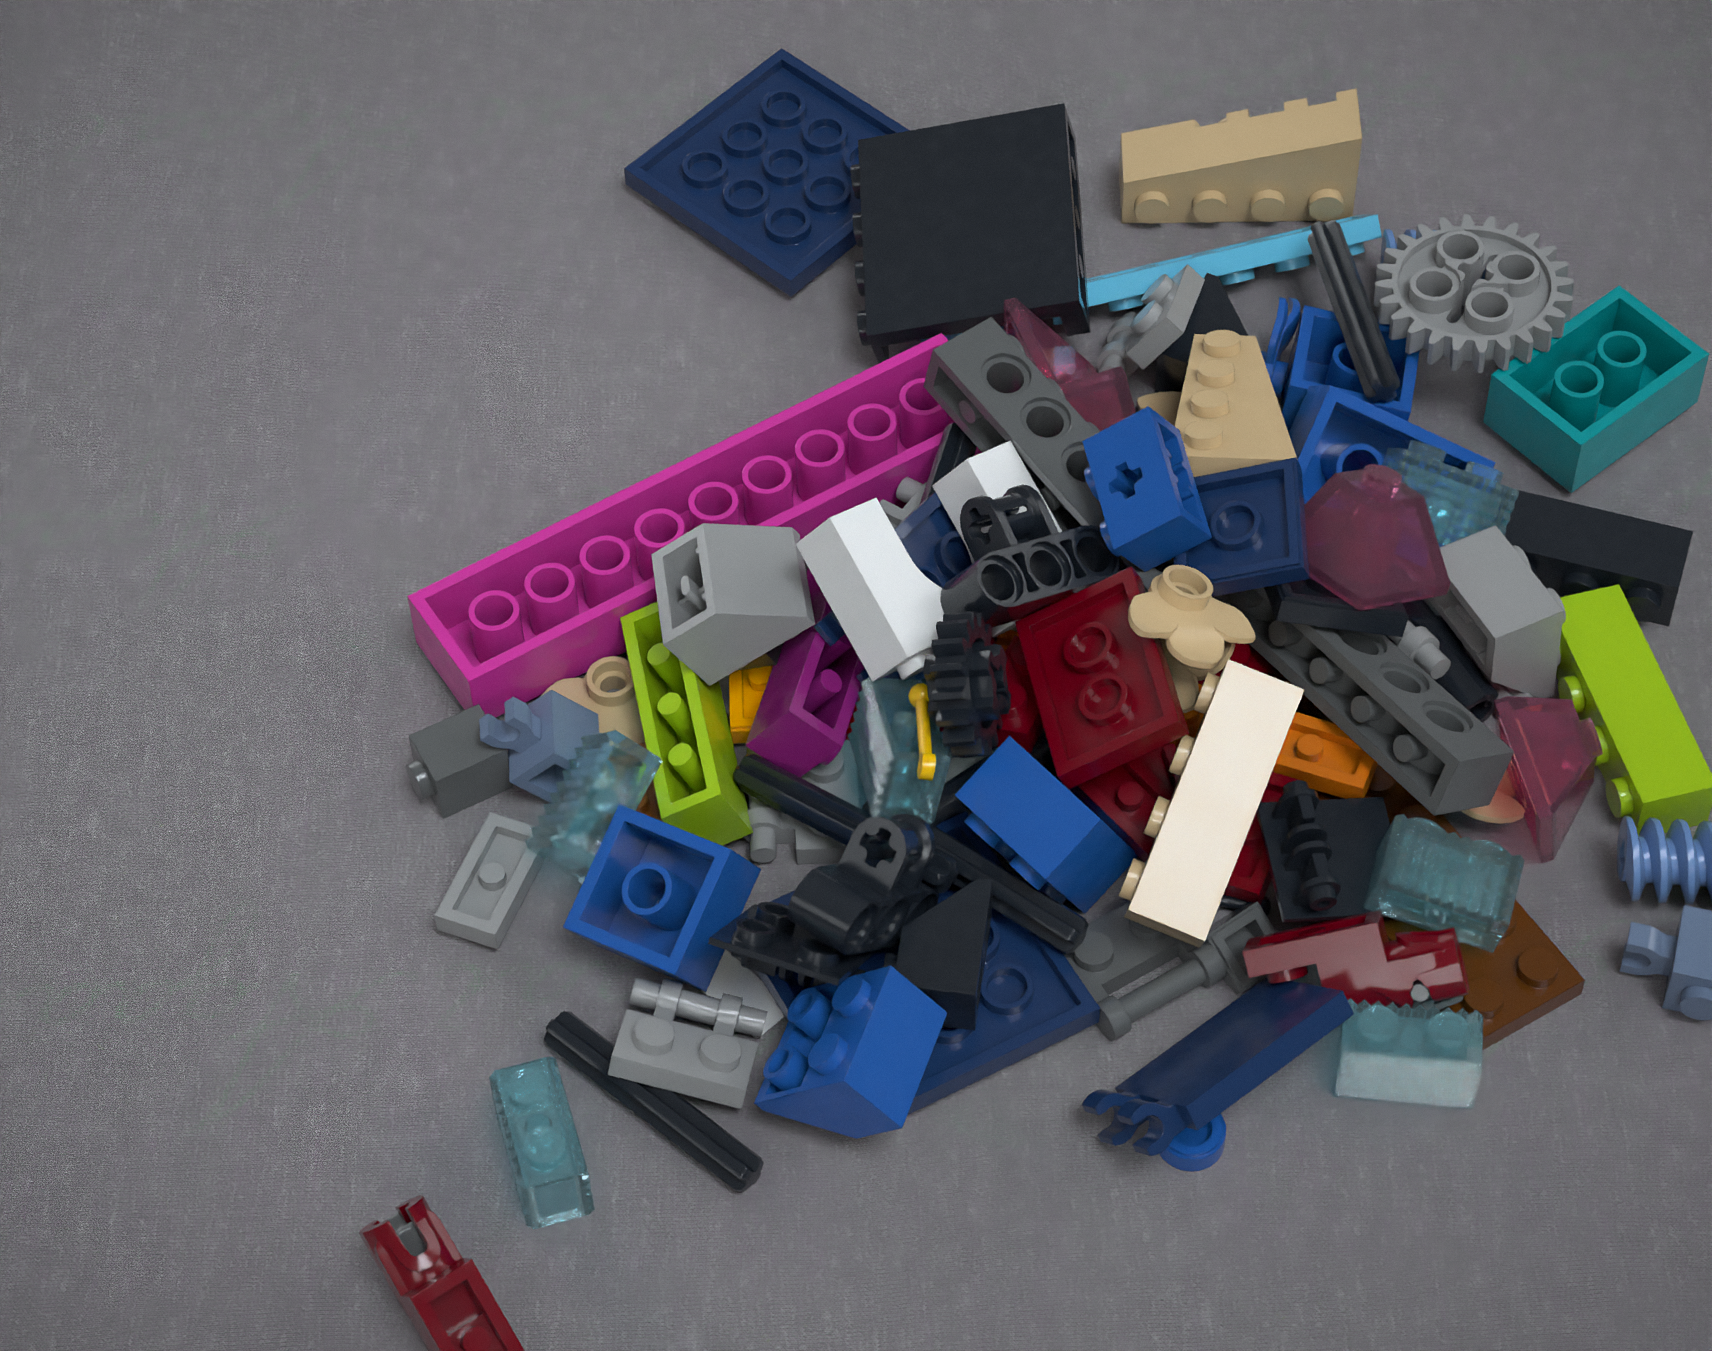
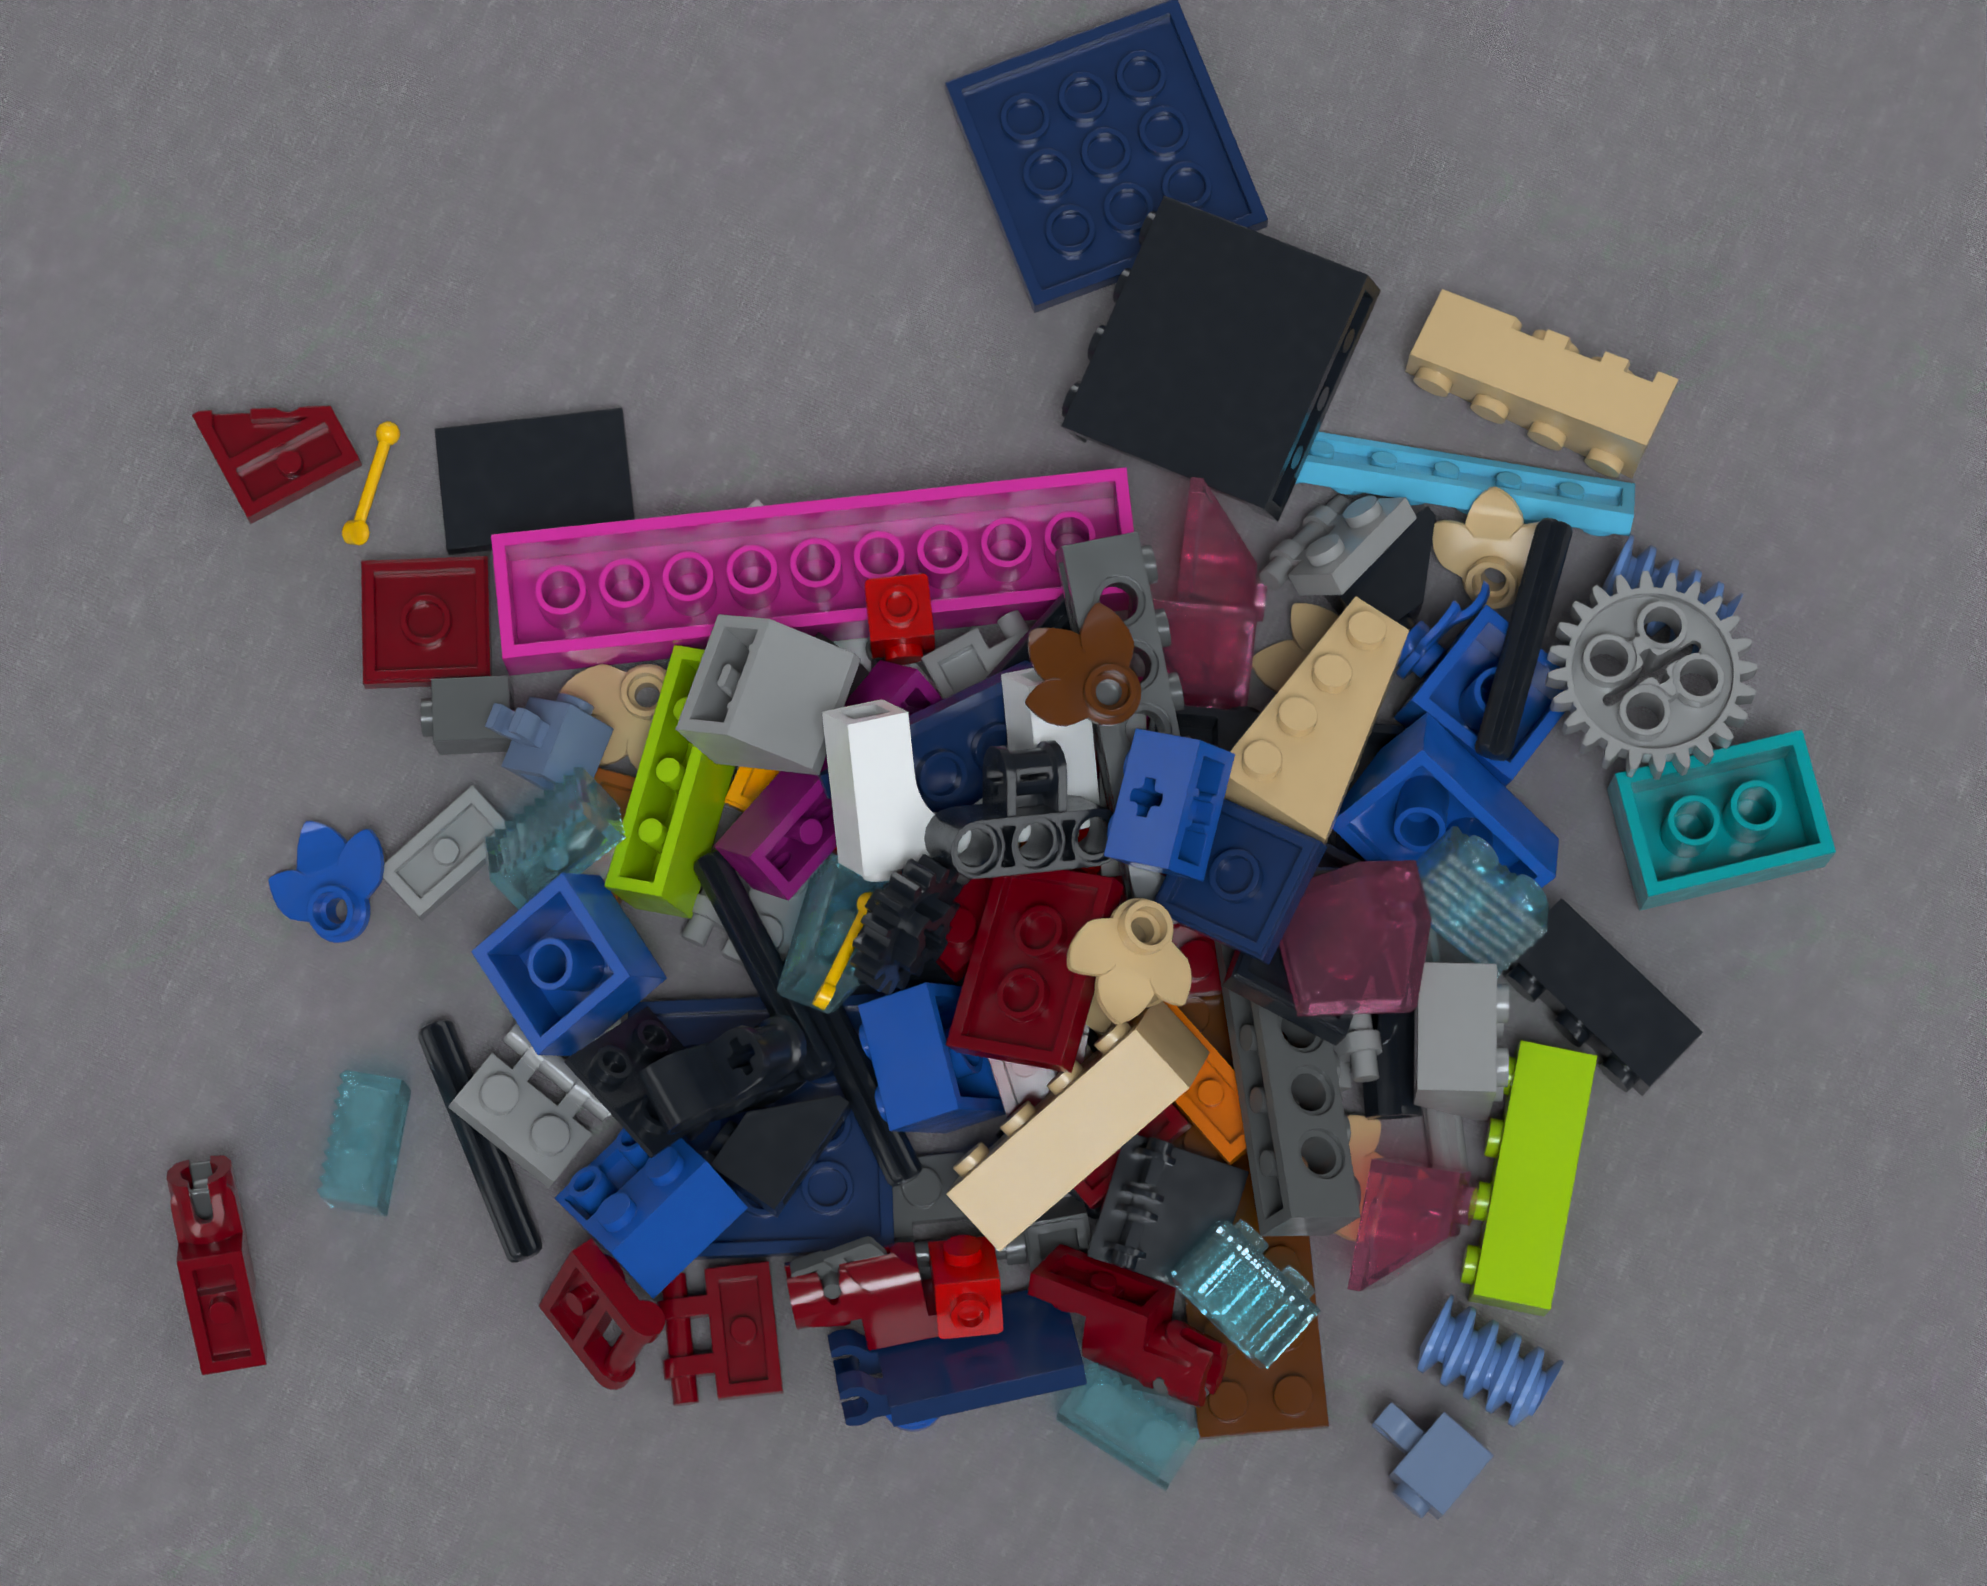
camera: 25 degrees right, 25 degrees up
(172, 644) = (277, 454): none -> dark red wing
(275, 676) = (356, 530): none -> yellow hinge
(370, 710) = (425, 620): none -> dark red plate
(372, 581) = (532, 476): none -> black tile
(388, 944) = (327, 873): none -> blue plate
(807, 500) = (900, 618): none -> red bracket
(835, 1171) = (582, 1305): none -> dark red plate
(995, 1142) = (741, 1334): none -> dark red plate
(1011, 428) = (1076, 665): none -> reddish brown plate
(1111, 1039) = (865, 1284): none -> dark red plate
(1193, 992) = (966, 1287): none -> red bracket
(1271, 274) = (1488, 539): none -> tan plate

